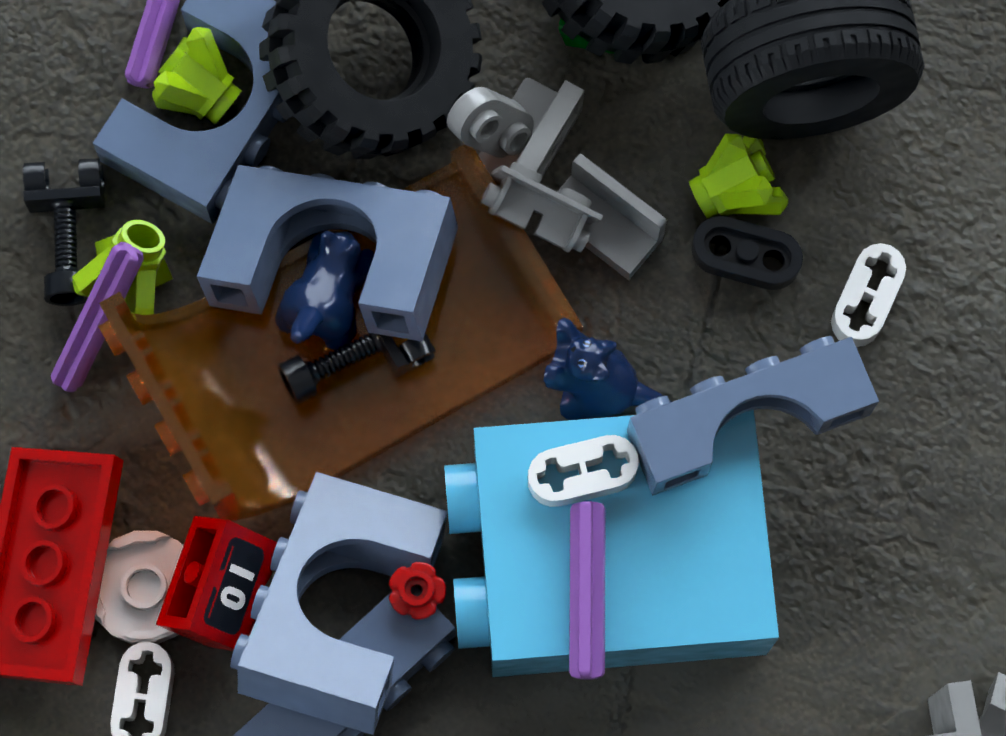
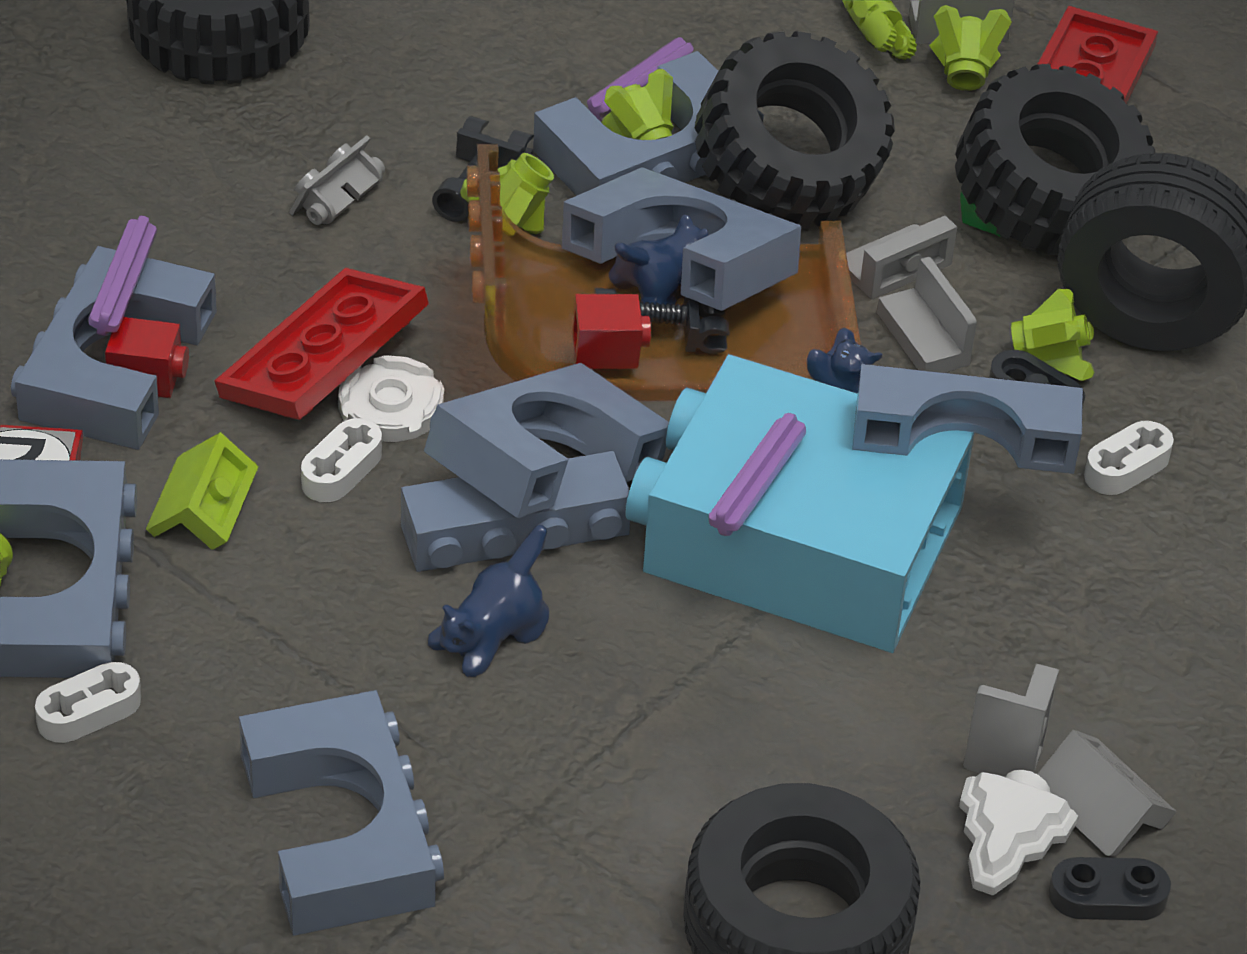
camera: 25 degrees right, 30 degrees down
(86, 336) = (454, 217): medium lavender axle -> none
(216, 582) = (460, 377): red brick -> none
(324, 419) = (609, 331): none -> red brick
(418, 606) = (614, 453): red plate -> none
(490, 122) = (868, 215): light grey plate -> none
(561, 212) = (891, 288): light grey hinge -> none
(579, 456) = (806, 400): white beam -> none

